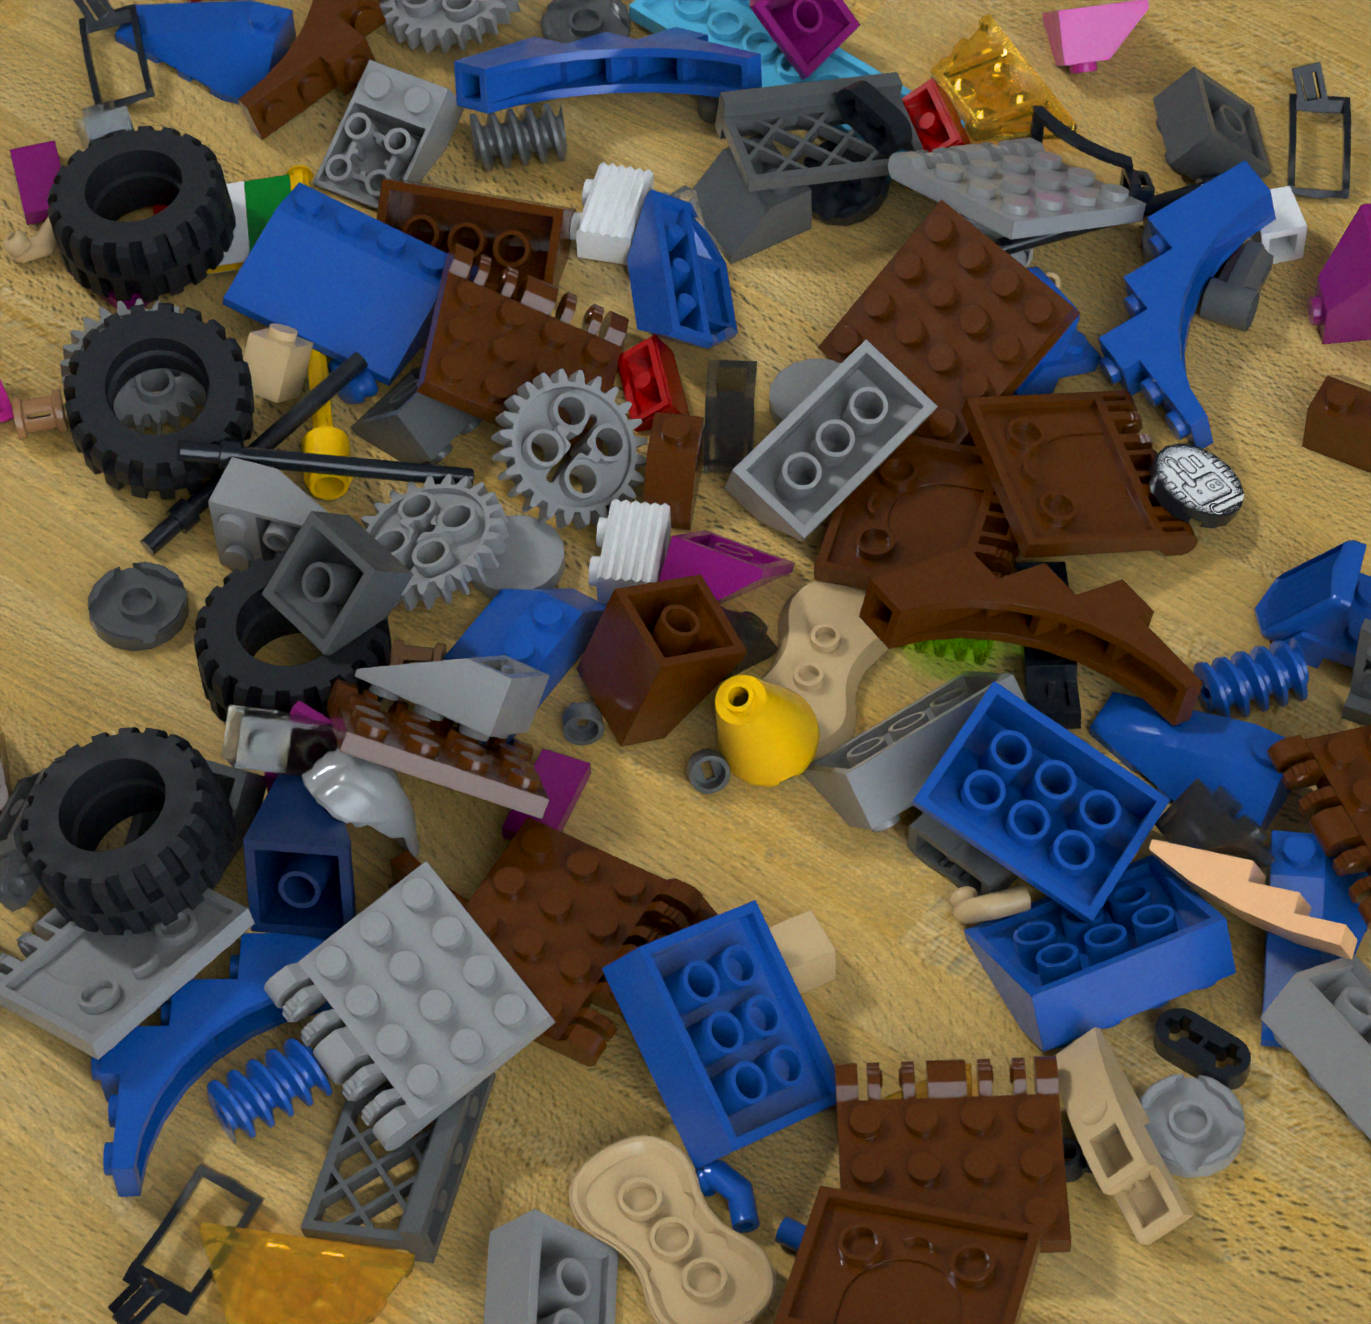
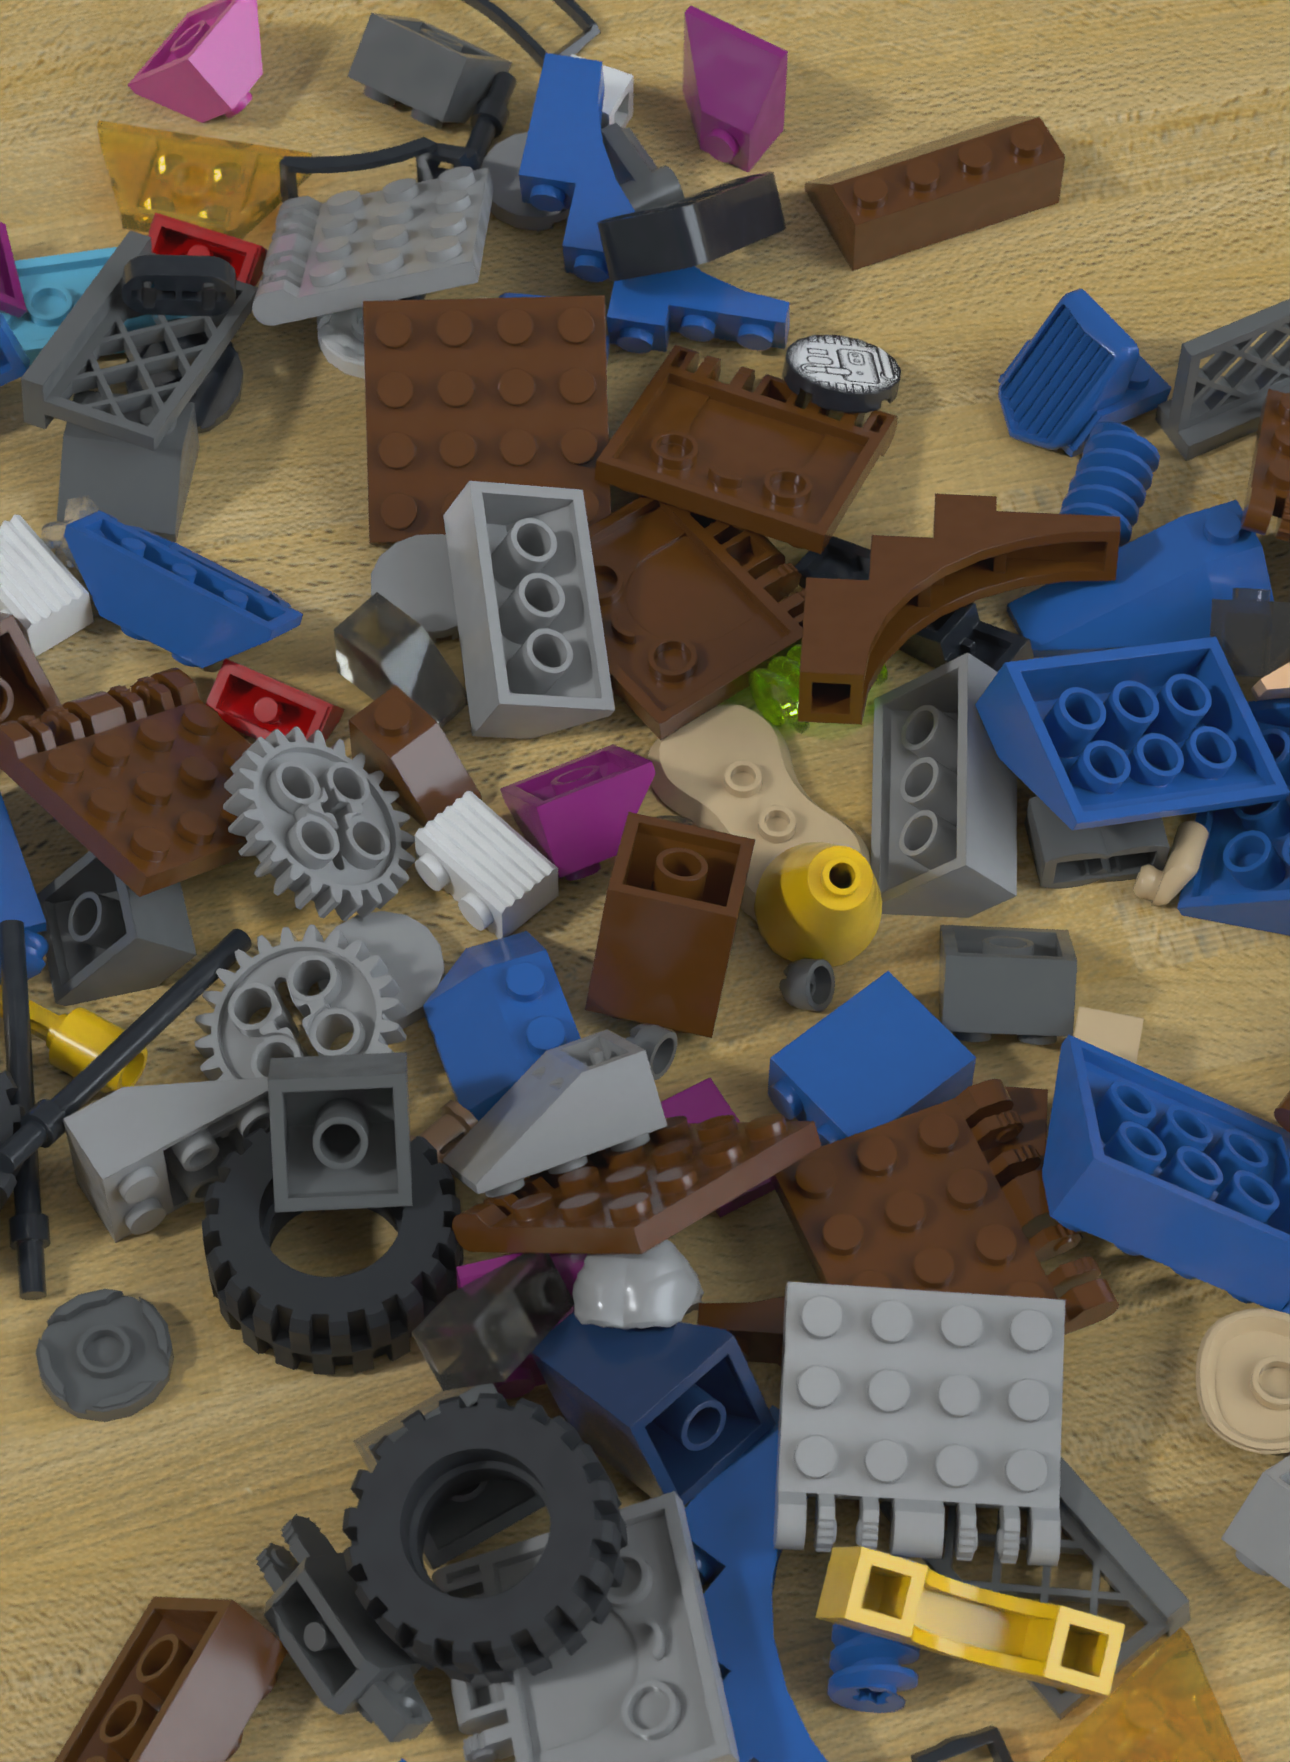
camera: 55 degrees left, 5 degrees up
(275, 1084) = (968, 1622): none -> yellow arch
(673, 831) = (869, 1064): none -> blue brick
(806, 865) = (1007, 983): none -> dark grey slope
(1210, 330) = (692, 228): none -> black beam

